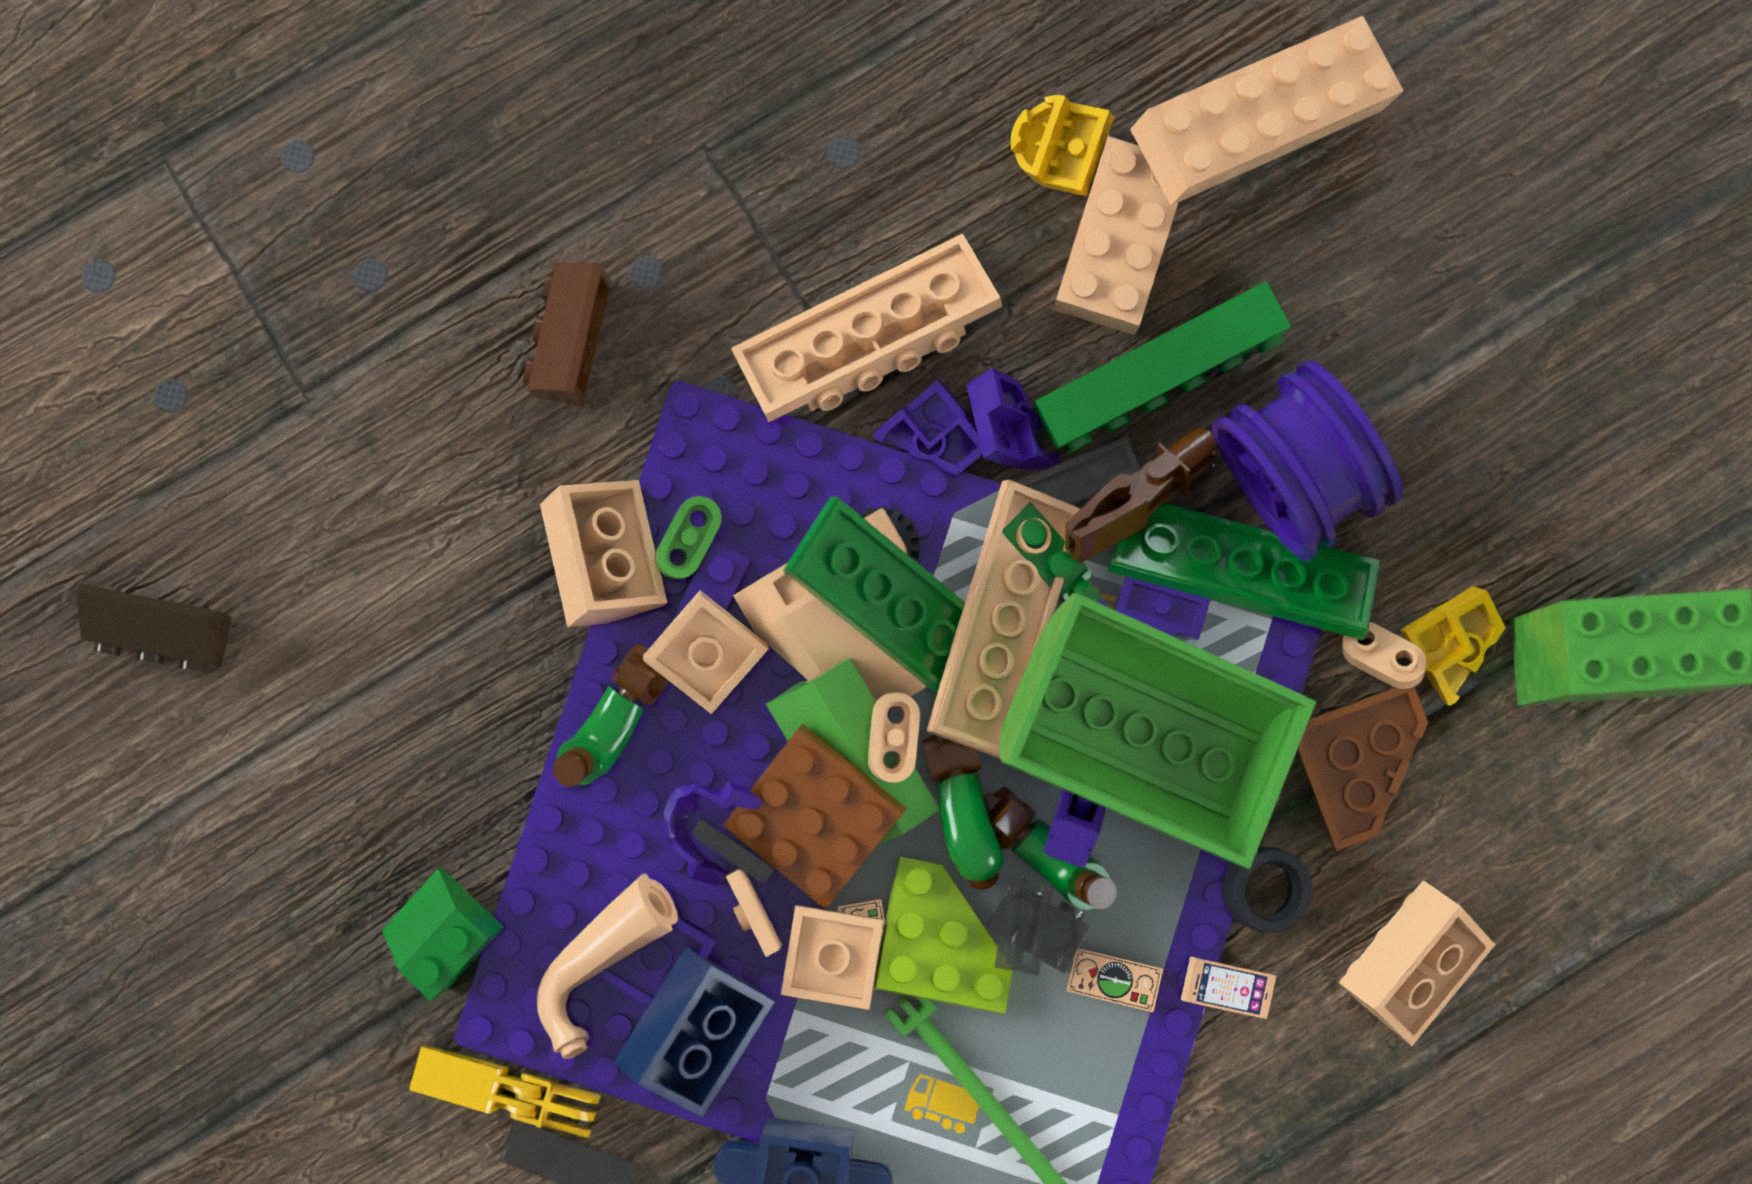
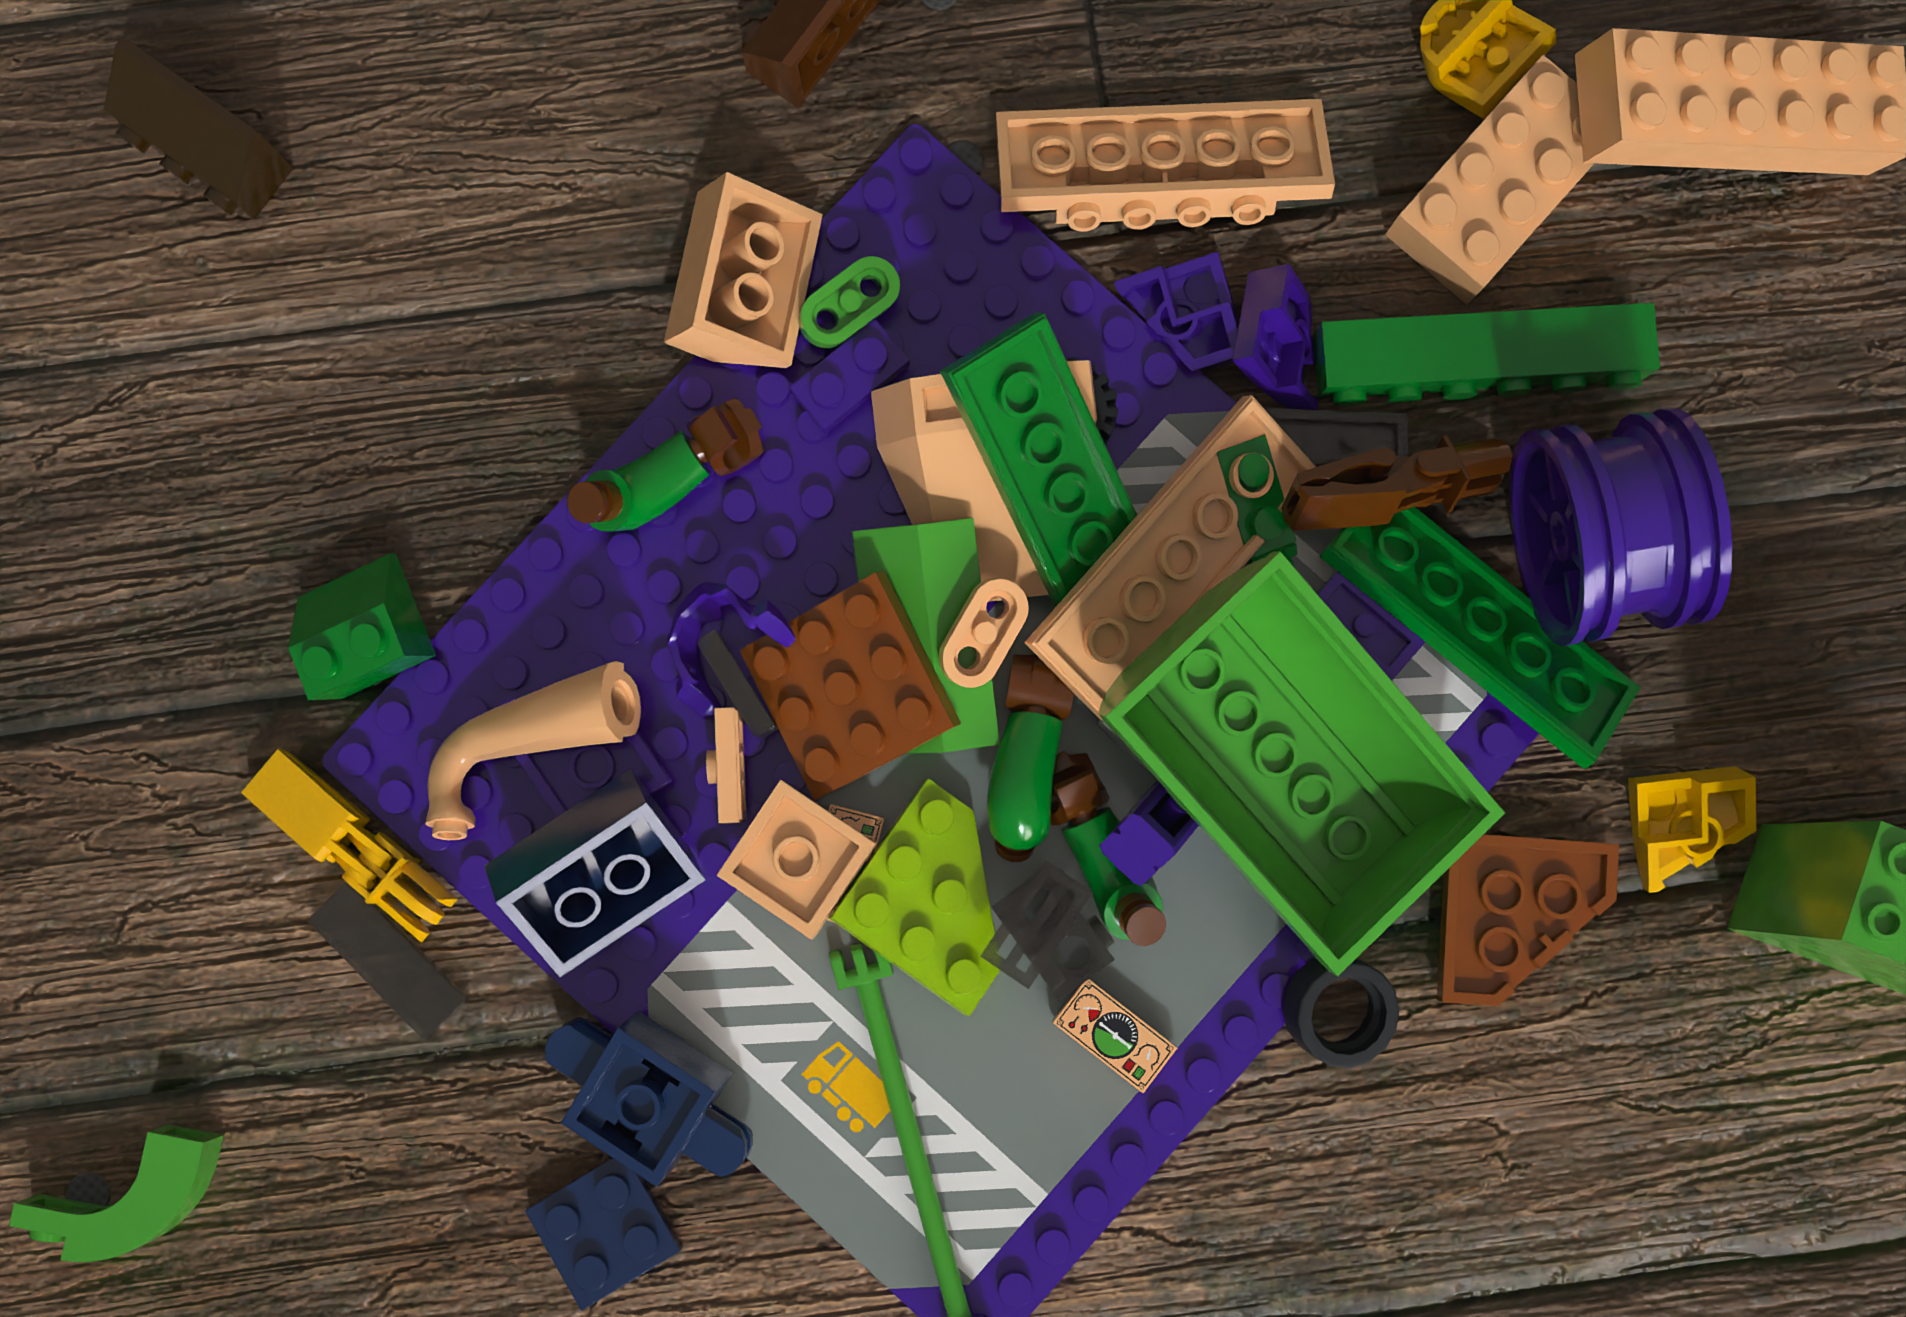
camera: 20 degrees right, 0 degrees up
(705, 652) = (809, 440): light nougat plate -> none
(1228, 987) = (1243, 1104): tile -> none
(1381, 656) = (1595, 799): light nougat plate -> none
(1417, 962) = (1480, 1175): light nougat slope -> none

